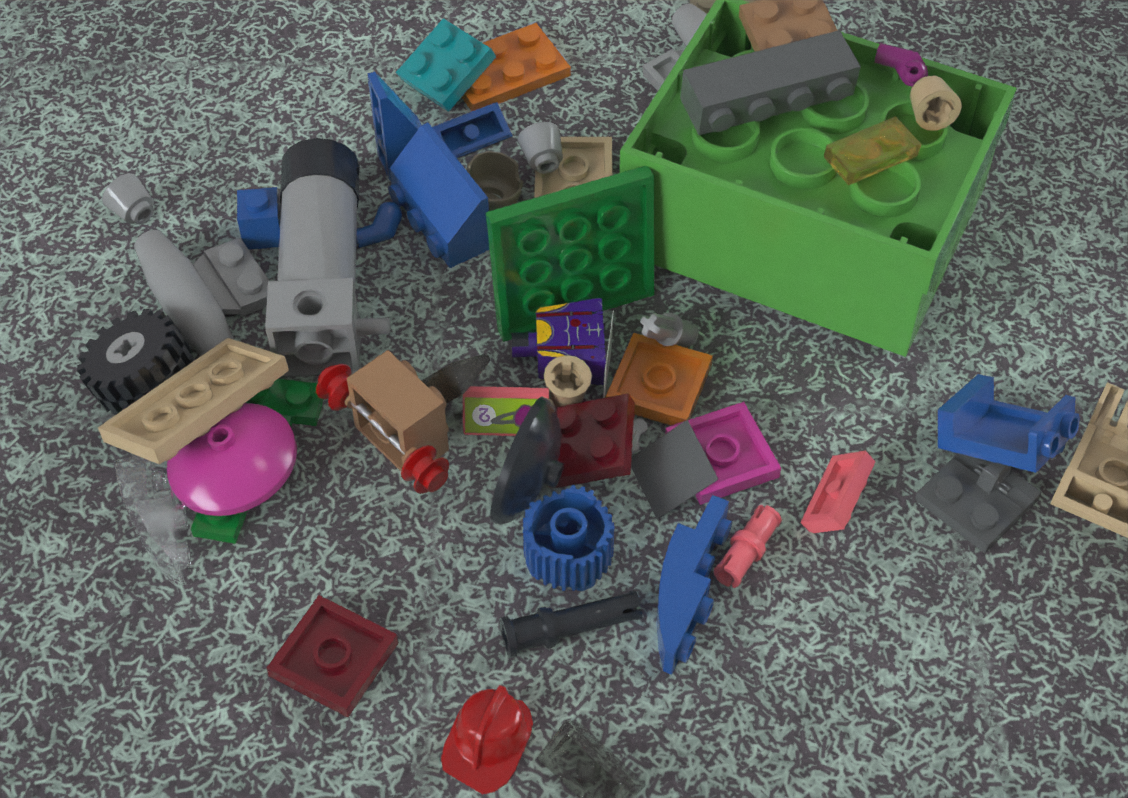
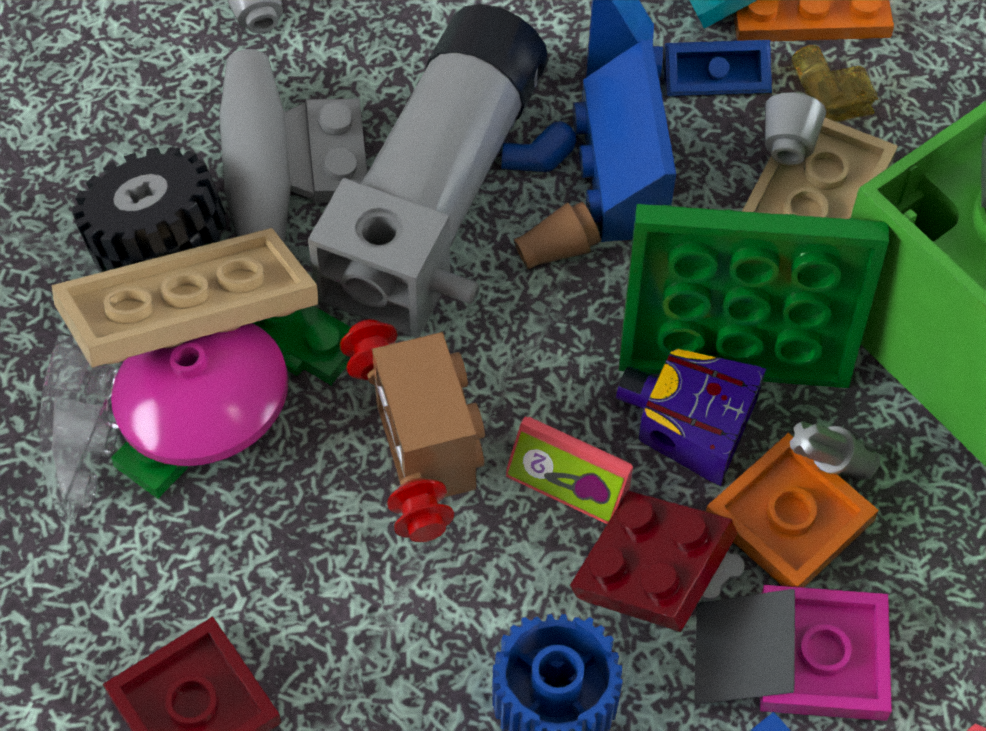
camera: 25 degrees right, 5 degrees up
(259, 217) = (390, 79): blue brick -> none
(423, 272) = (561, 235): none -> medium nougat cone
(457, 377) = (514, 405): clear smoke slope -> none
(496, 175) = (712, 136): dark tan hair -> none
(529, 463) = (547, 562): black dish -> none
(560, 112) = (844, 92): none -> clear yellow piece
(567, 380) = (665, 463): tan hat -> none
(608, 358) = (731, 458): white sticker -> none

